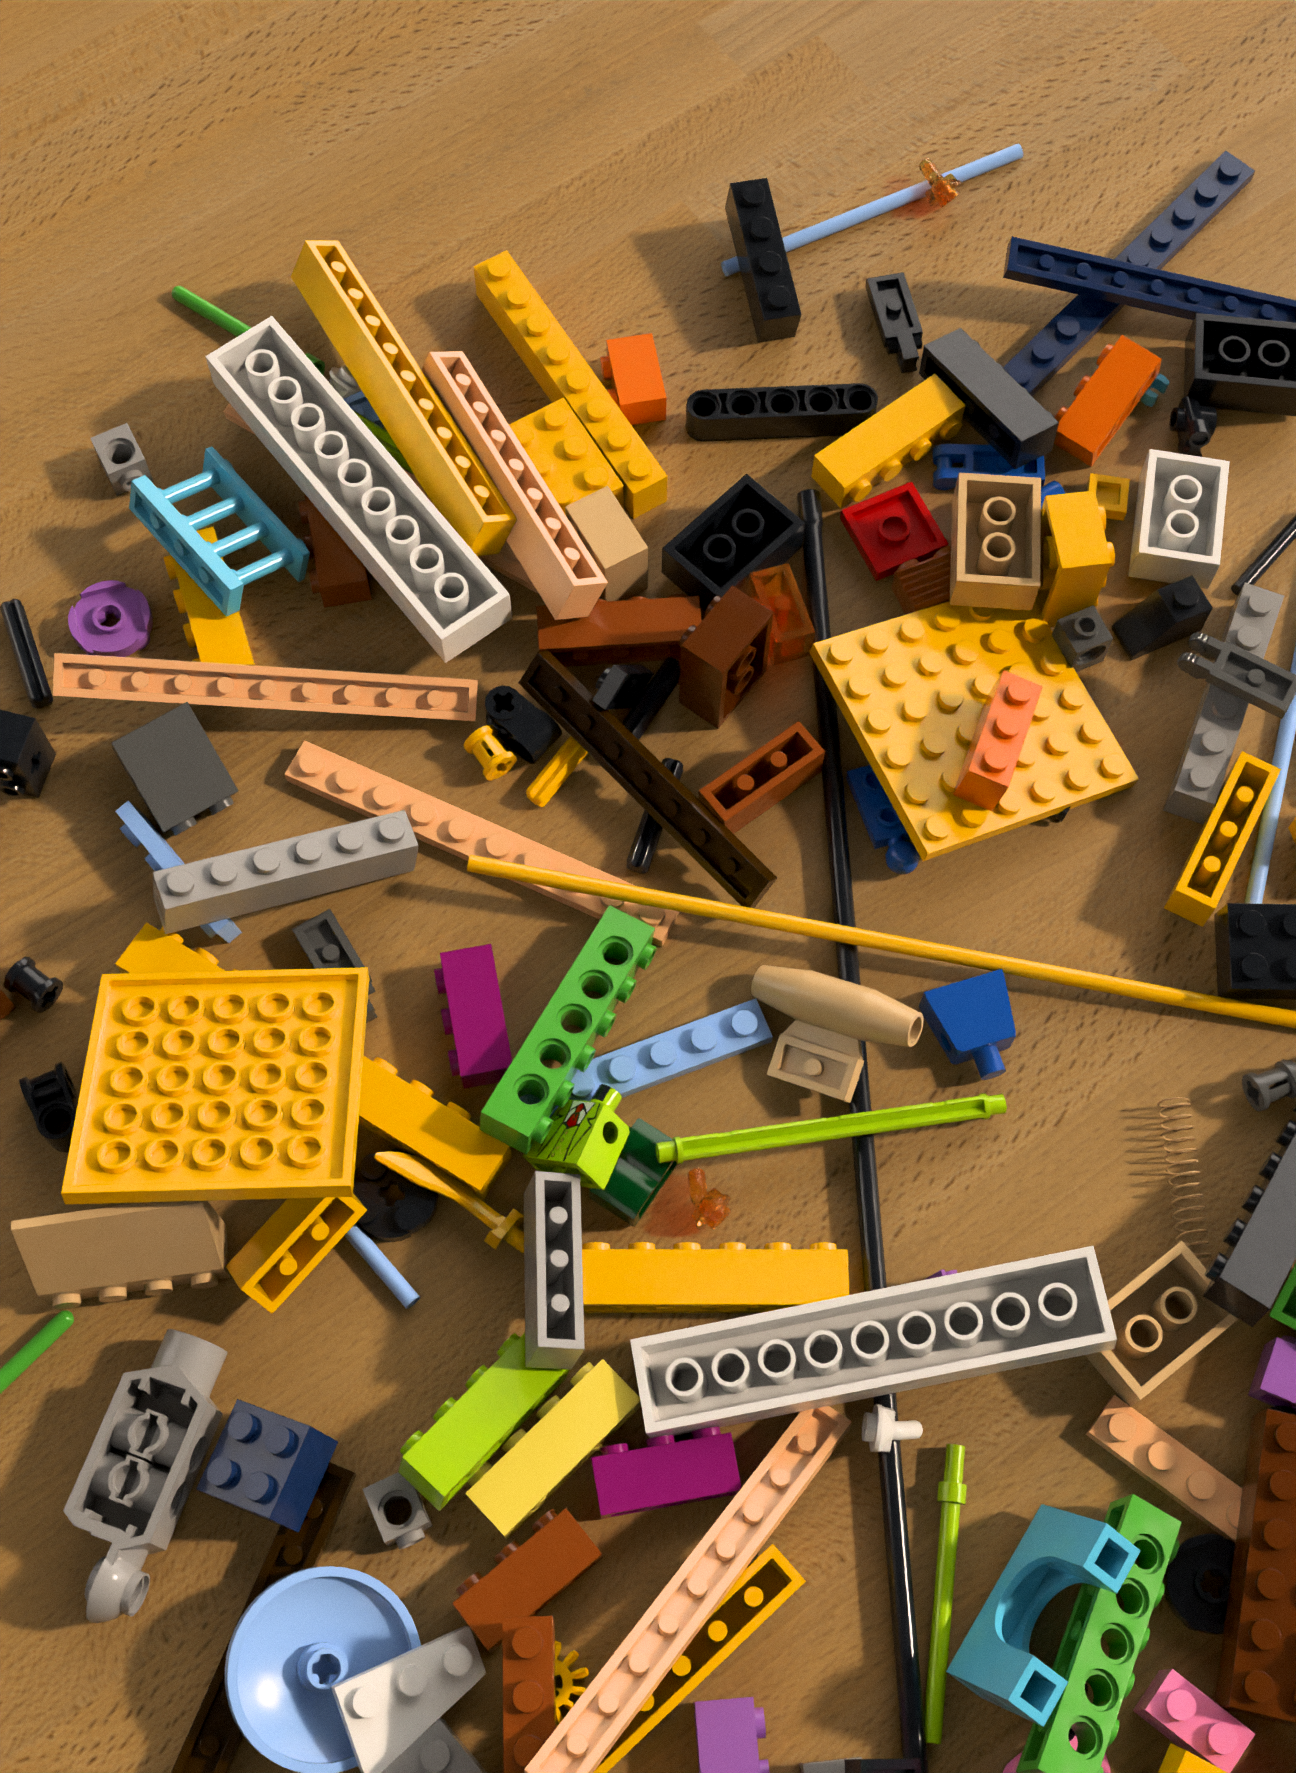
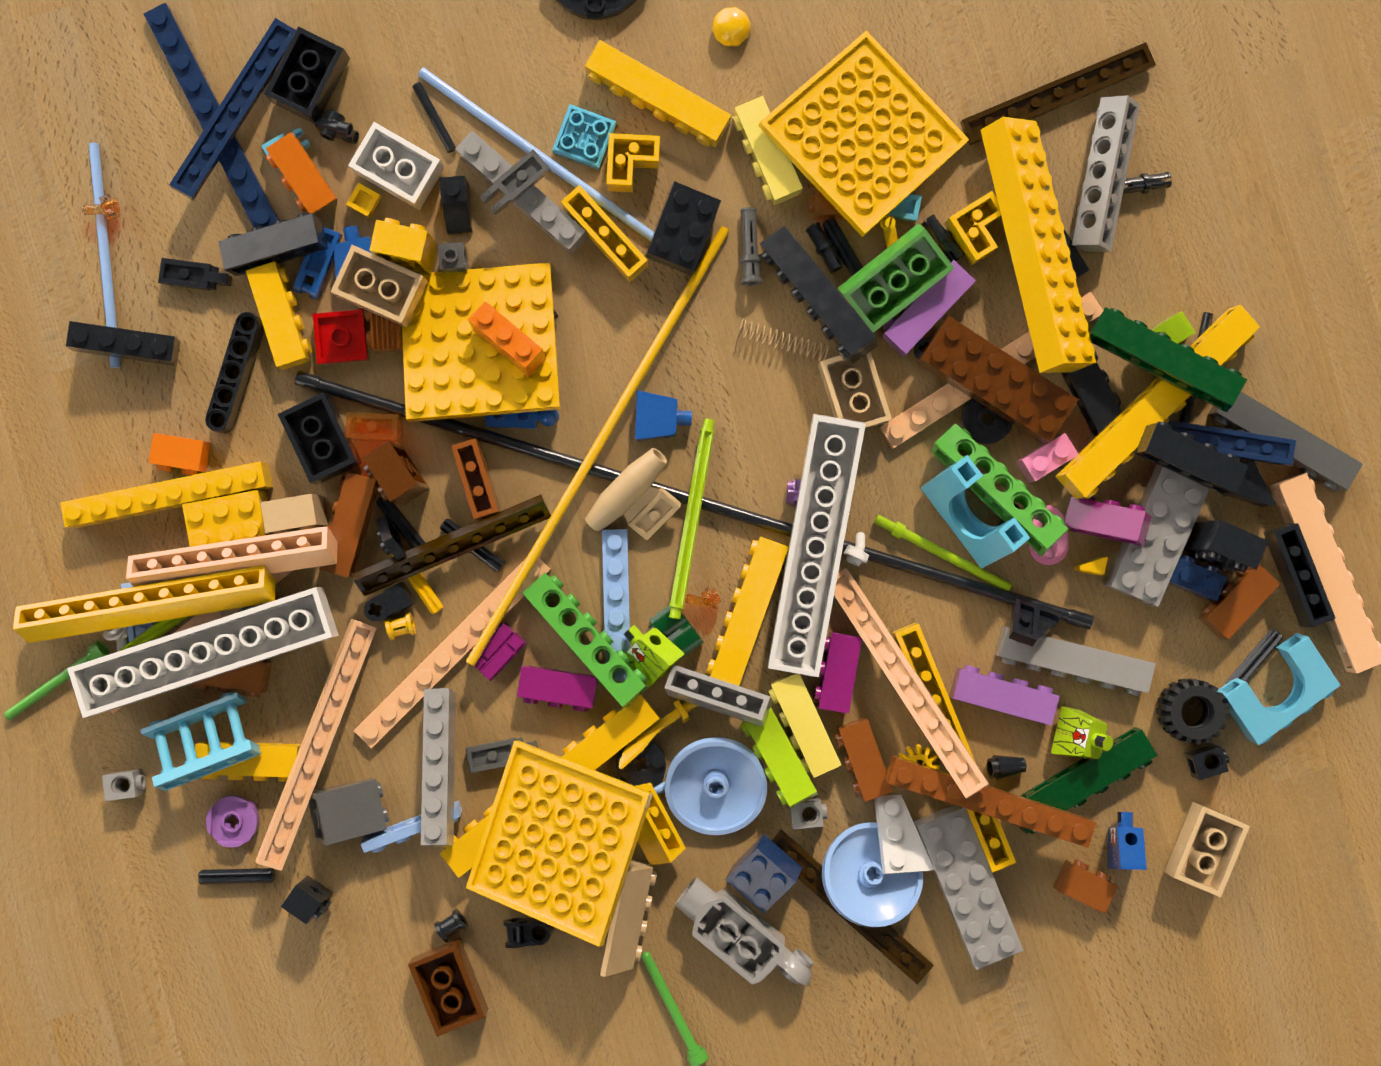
camera: 70 degrees left, 20 degrees up
(395, 1328) = (716, 786): none -> light blue dish
(503, 907) = (499, 651): none -> magenta brick

